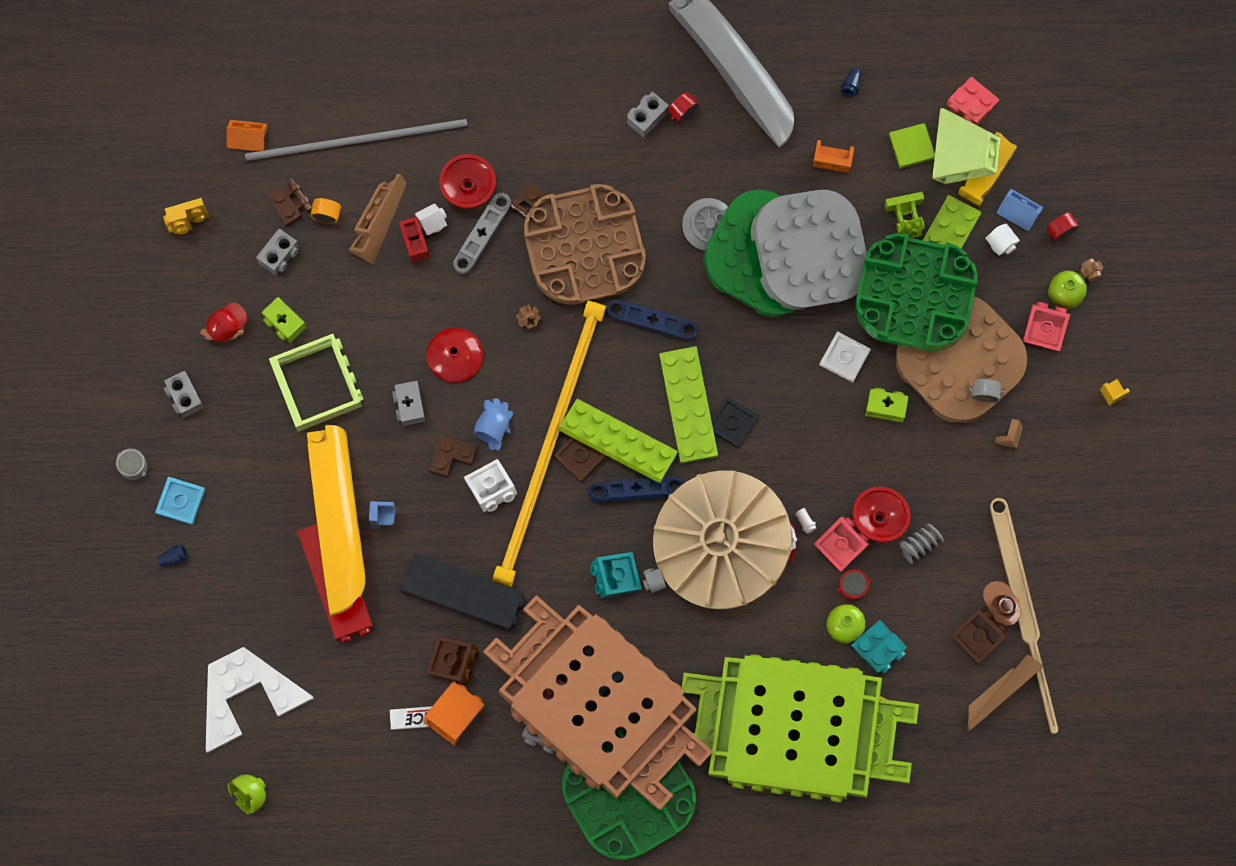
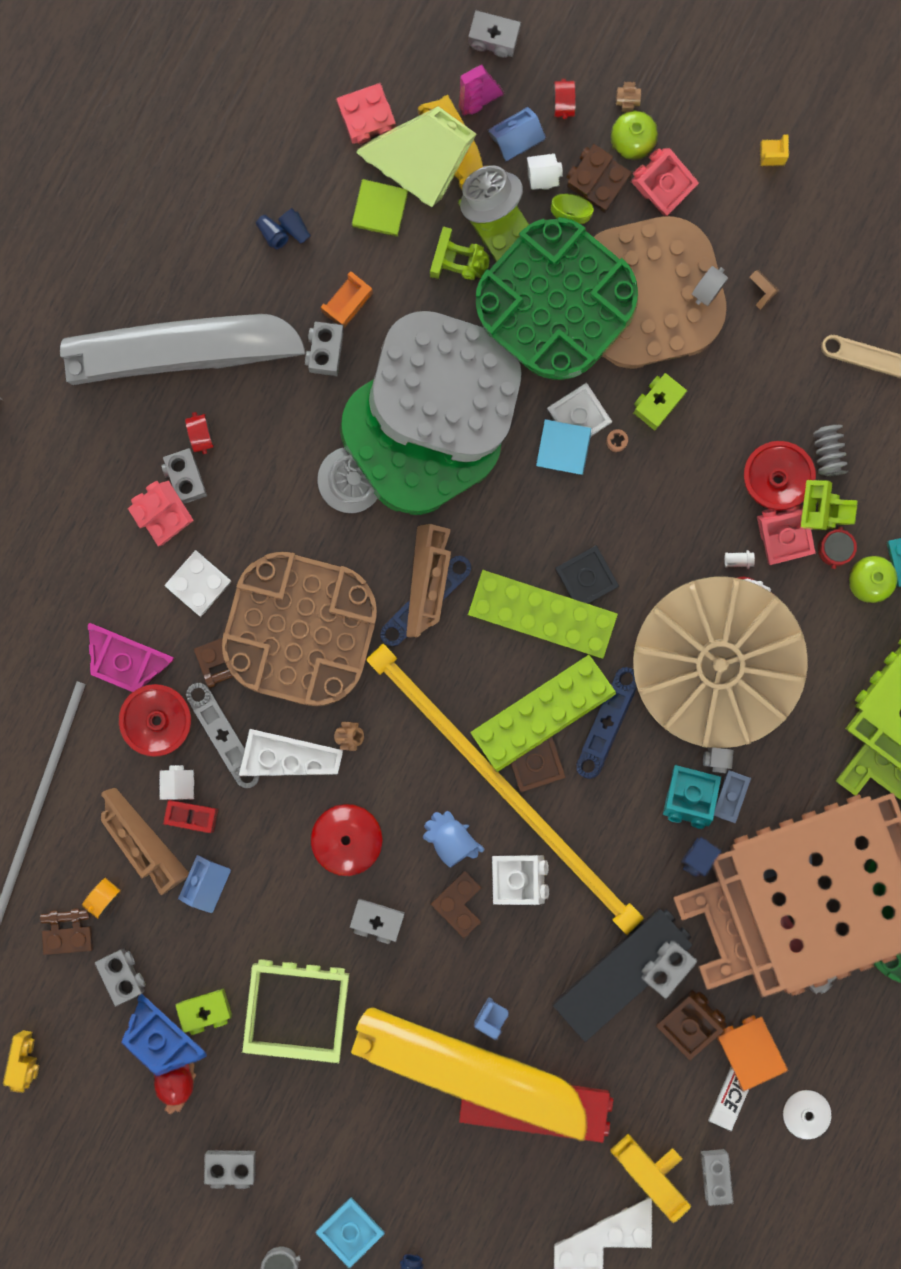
camera: 65 degrees left, 10 degrees up
(247, 298) = (158, 1040): none -> blue wing
(329, 687) = (652, 1176): none -> yellow piece
(352, 734) = (716, 1177): none -> light grey brick
(371, 276) = (204, 884): none -> medium blue panel
(432, 790) = (798, 1106): none -> white dish
(481, 622) = (673, 973): none -> light grey brick
(489, 278) = (279, 755): none -> white wing
(497, 140) = (123, 660): none -> dark pink wing
(573, 594) = (700, 857): none -> dark blue arch
(578, 162) = (198, 583): none -> white plate
(613, 110) = (160, 512): none -> coral plate
(631, 603) = (731, 796): none -> sand blue plate
(669, 311) = (428, 578): none -> medium nougat wedge
(793, 164) = (331, 349): none -> light grey brick
(815, 356) = (564, 447): none -> medium azure tile
(842, 397) = (610, 437): none -> nougat bush
(865, 95) = (294, 225): none -> dark blue cone
(873, 552) = (830, 508): none -> lime tile
(963, 209) = (490, 194): none -> light grey wheel
(988, 272) = (572, 208): none -> lime piece
(1021, 280) = (597, 177): none -> reddish brown plate
(1030, 162) = (476, 90): none -> dark pink wing
(1082, 147) = (483, 28): none -> light grey brick

